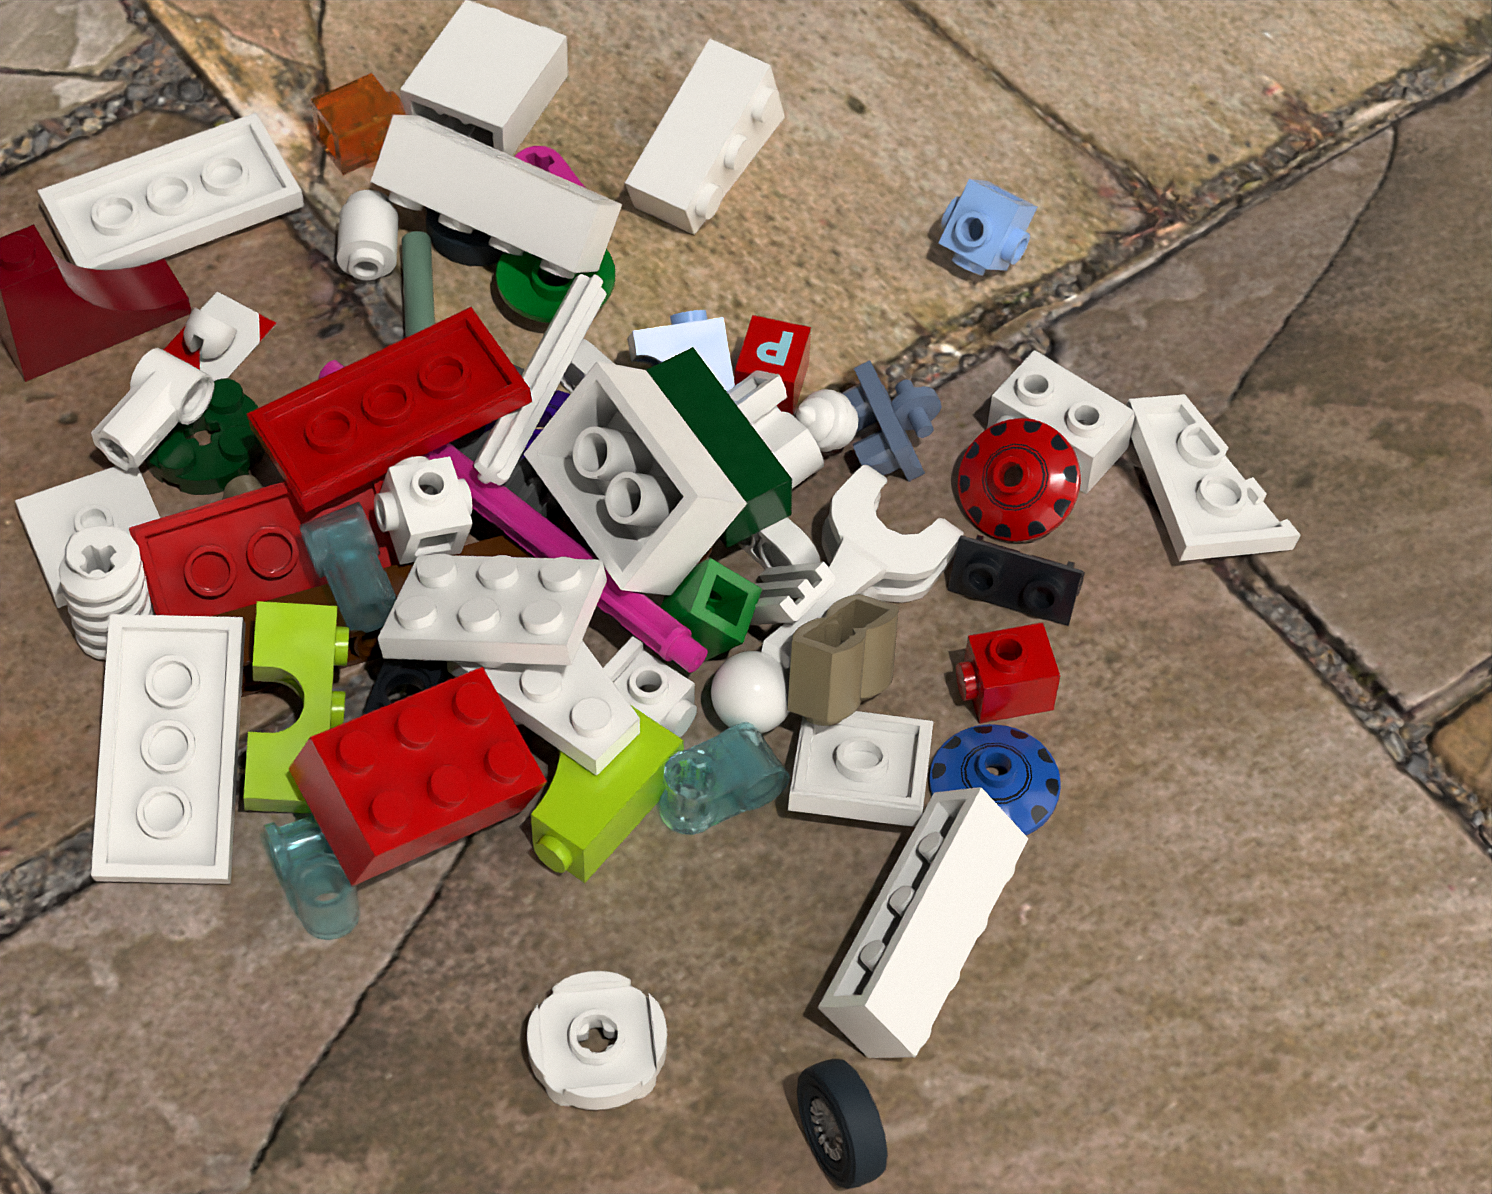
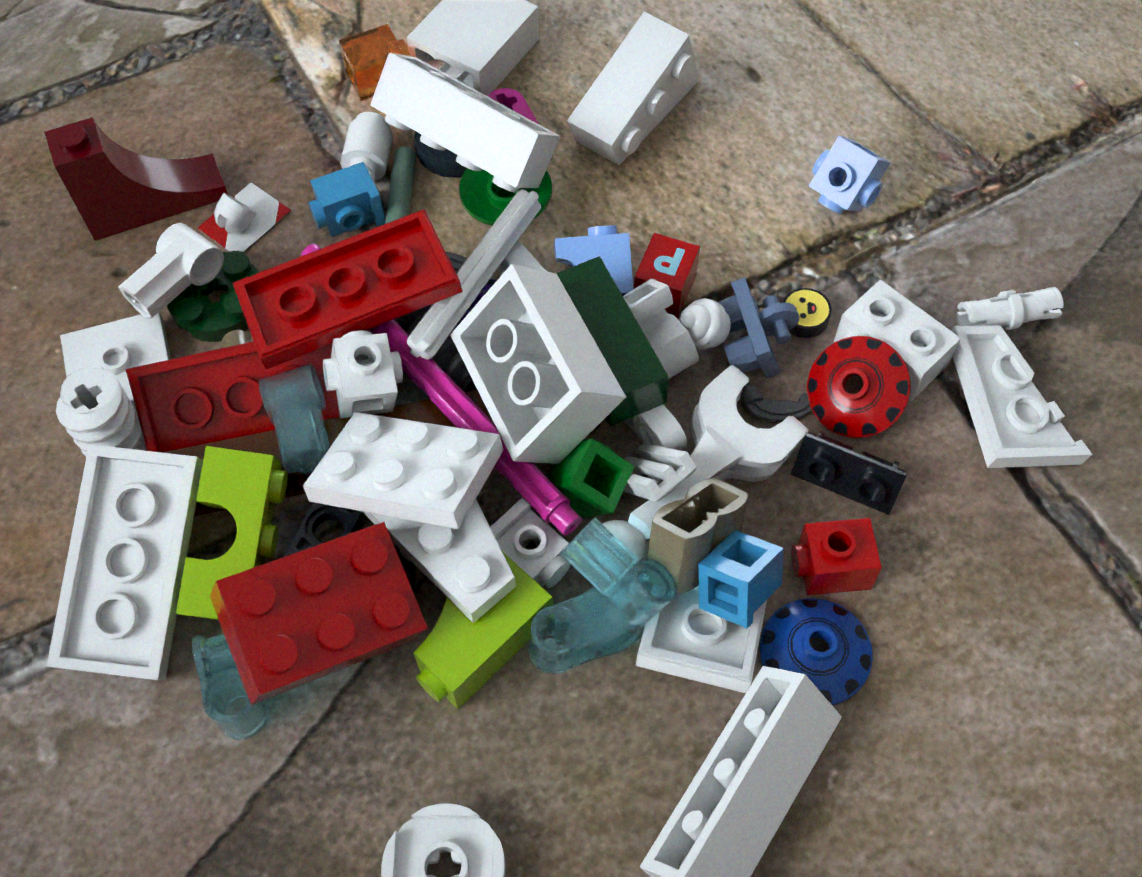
camera: 10 degrees right, 5 degrees up
(172, 197) = (227, 108): white plate -> none
(353, 305) = (346, 200): none -> dark azure brick
(774, 717) = (630, 587): none -> clear light blue piece
(897, 700) = (739, 577): none -> dark azure brick
(918, 516) = (773, 409): none -> dark grey piece
(958, 398) = (813, 312): none -> tile
(1198, 374) = (1011, 308): none -> white pin

